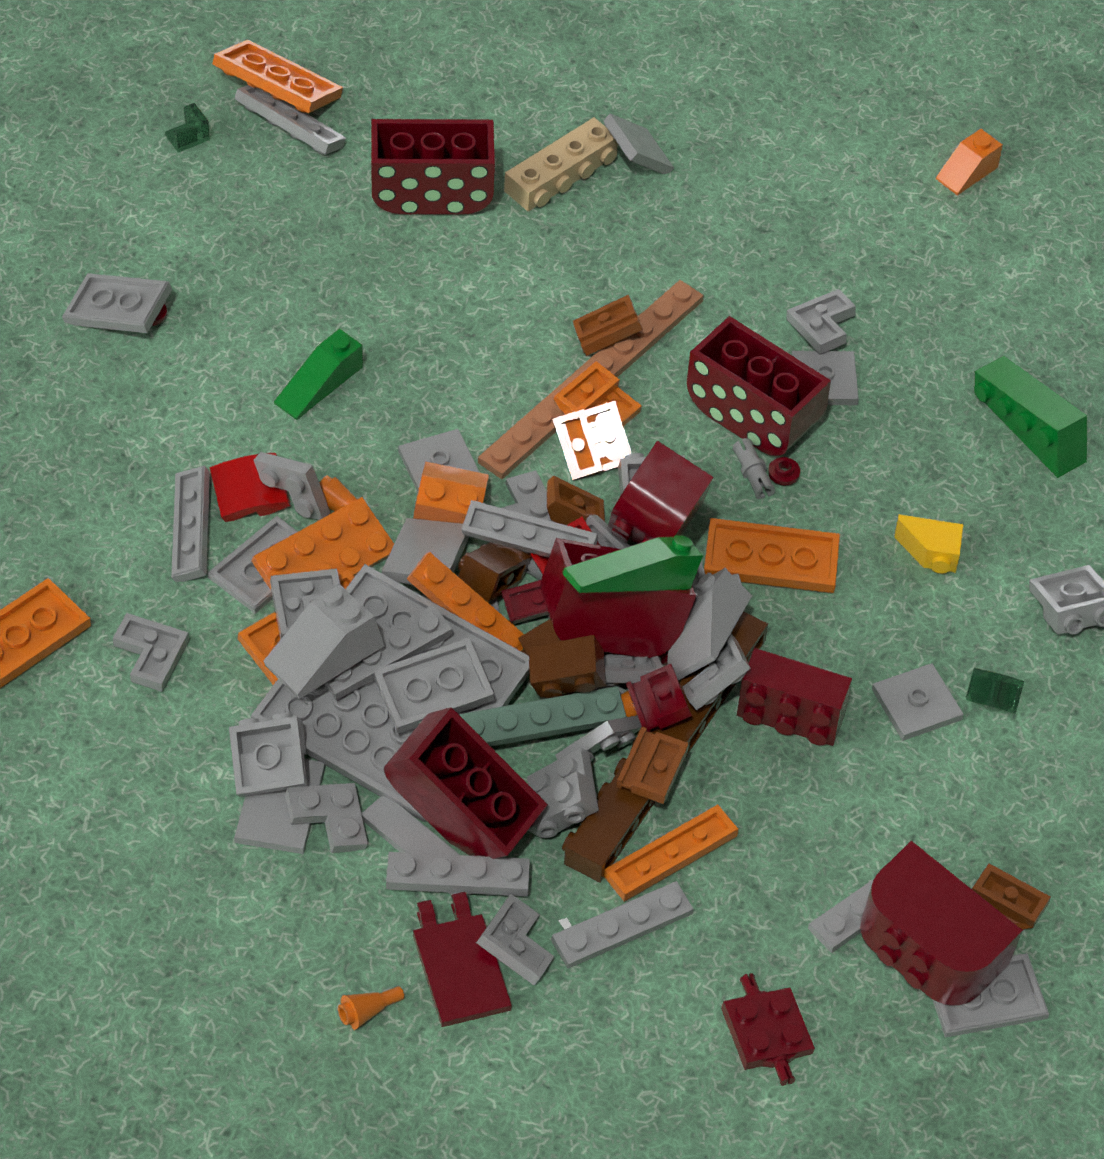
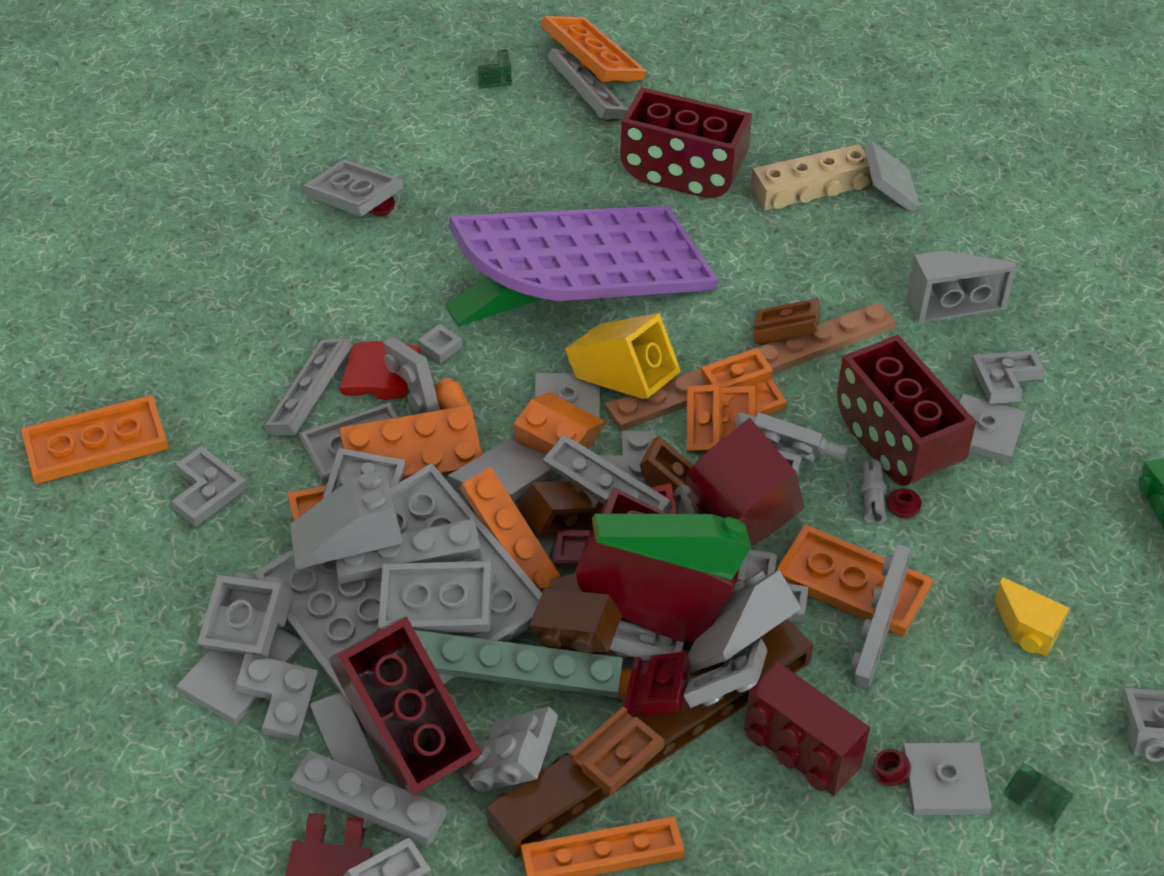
camera: 25 degrees right, 5 degrees down
(293, 442) = (440, 343): none -> light grey plate
(392, 310) = (585, 252): none -> medium lavender plate
(479, 405) = (626, 356): none -> yellow slope
(607, 735) = (583, 704): light grey plate -> none
(678, 440) = (800, 439): none -> light grey plate
(747, 244) = (958, 285): none -> light grey slope
(813, 595) = (876, 630): none -> light grey plate
(869, 699) = (889, 759): none -> dark red plate

